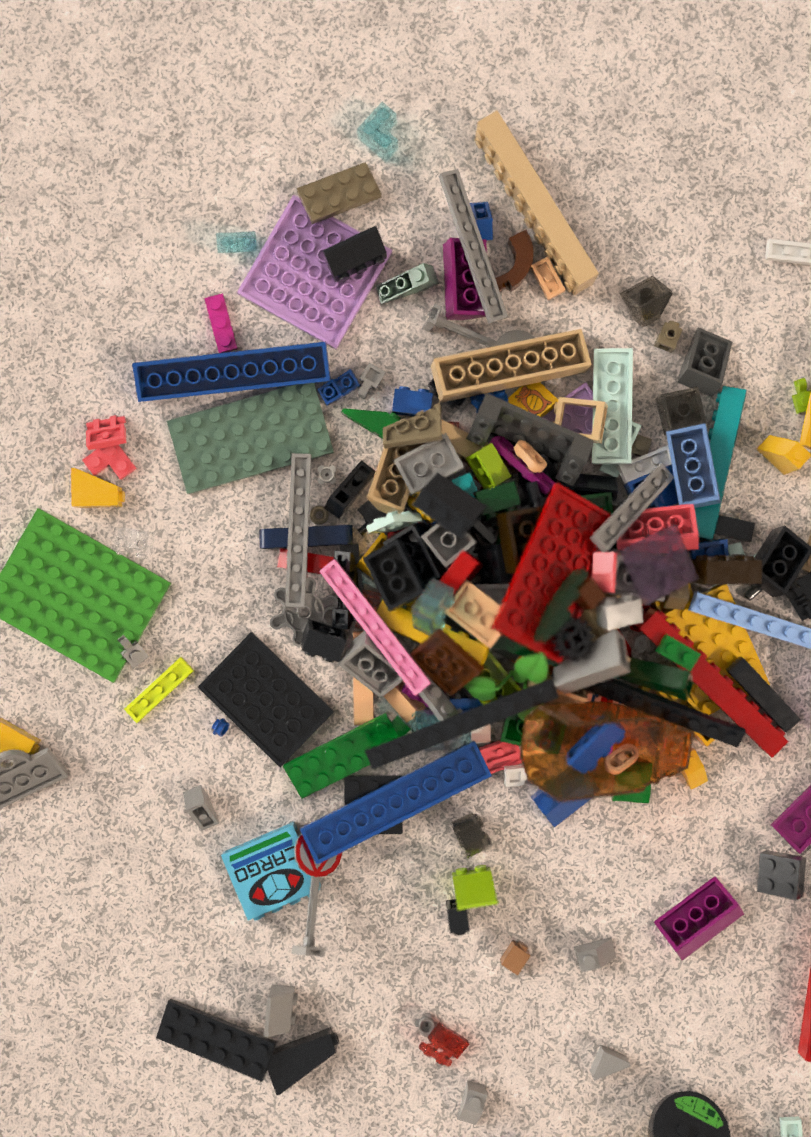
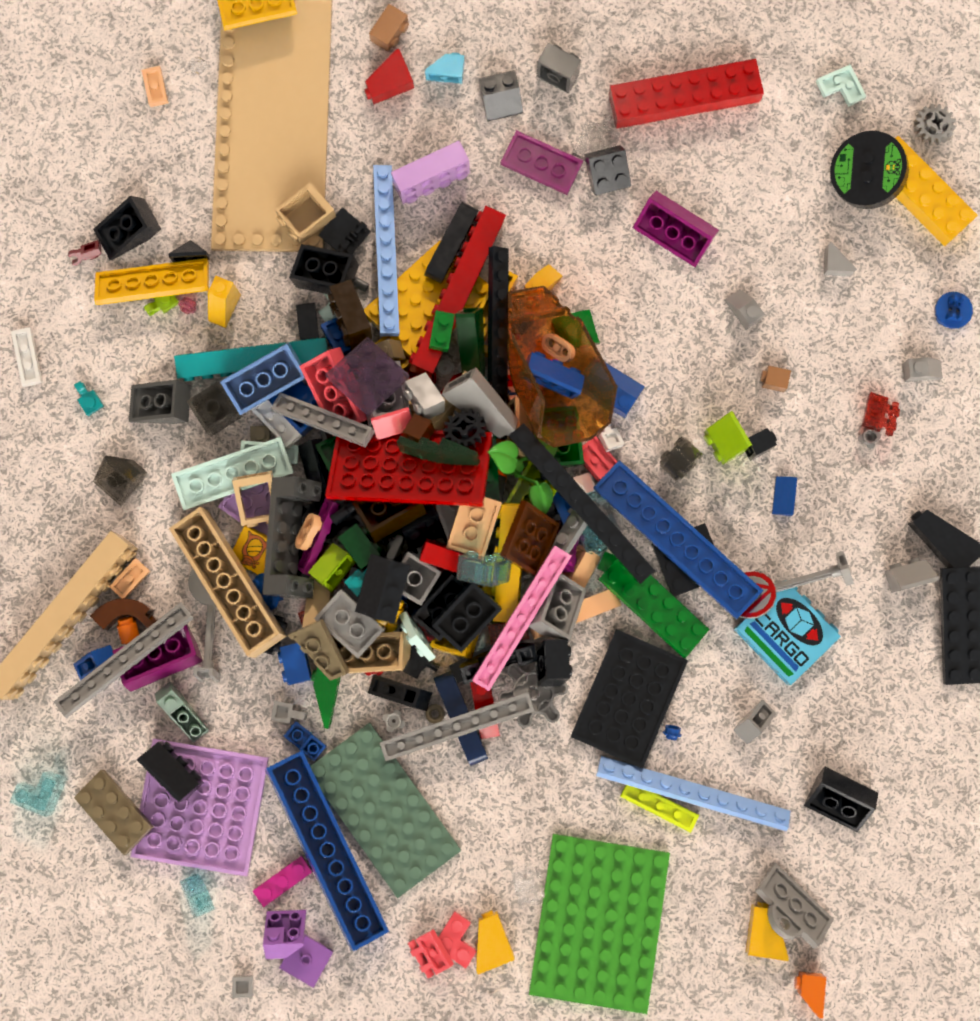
camera: 110 degrees left, 5 degrees down
(100, 860) = (841, 799): none -> black slope
(133, 652) = (633, 844): light grey plate -> none
(142, 256) = (242, 986): none -> light grey plate
(144, 321) = (307, 961): none -> medium lavender plate
(157, 725) = (693, 793): none -> light blue plate
(174, 308) = (283, 933): none -> medium lavender slope
(400, 920) = (784, 496): none -> blue slope
(500, 260) = (127, 629): none -> orange brick
(666, 342) = (153, 447): dark tan brick -> none
(731, 297) = (89, 401): none -> teal plate
(791, 420) = (187, 305): none -> clear pink plate

